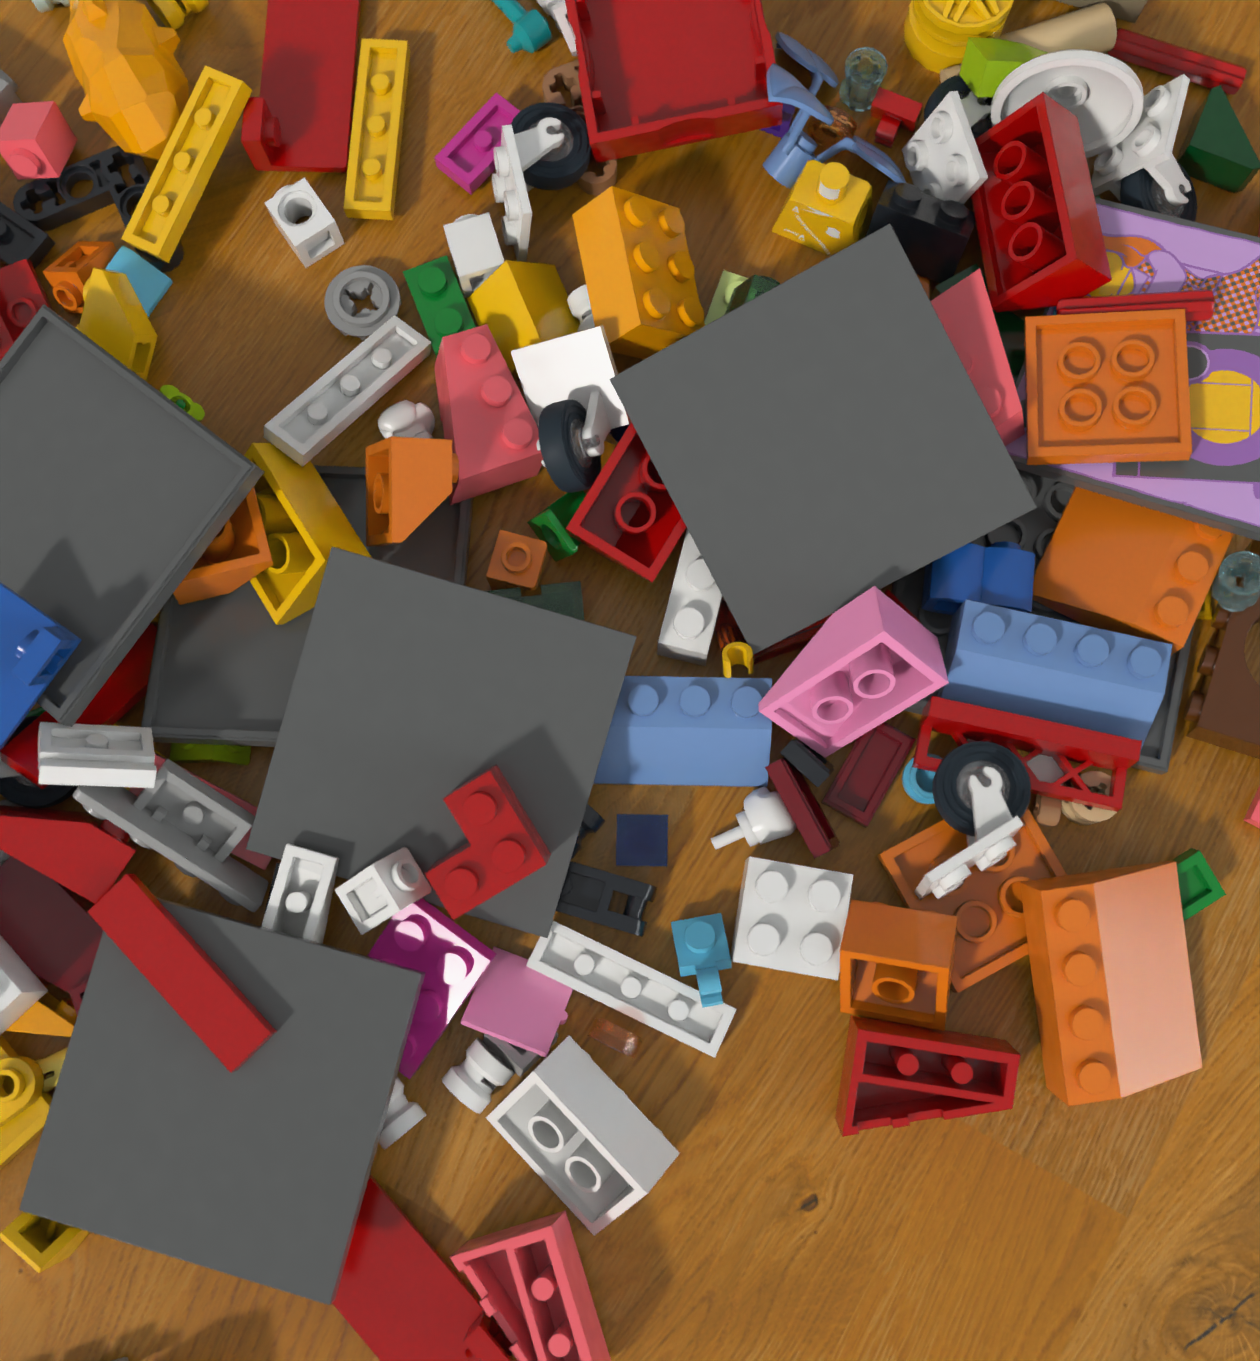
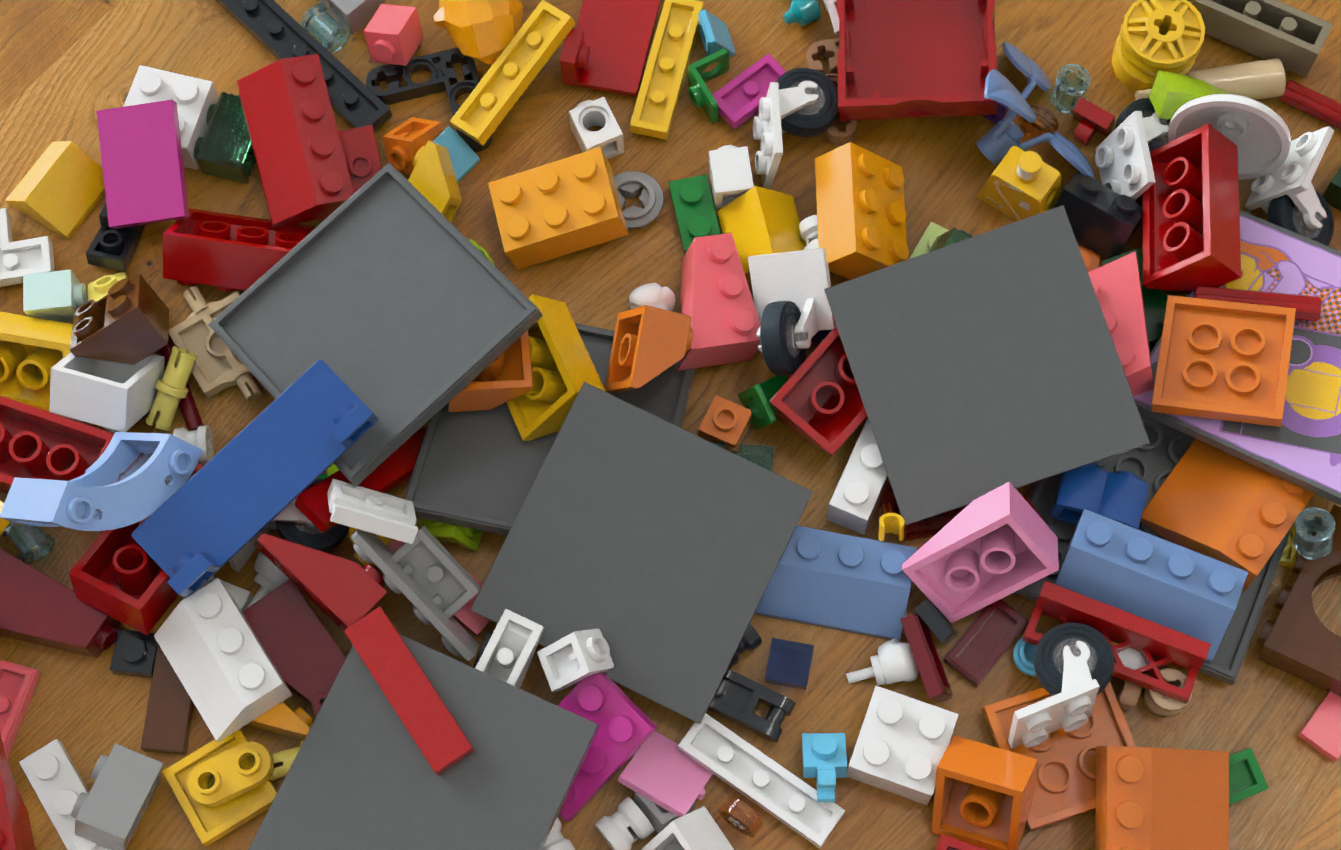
camera: 10 degrees right, 10 degrees down
(271, 327) = (558, 208): none -> light orange brick
(347, 390) = (611, 266): white plate -> none
(418, 151) = (698, 90): none -> green bracket
(429, 82) = (714, 34): none -> medium azure slope
(499, 849) = (677, 637): red brick -> none

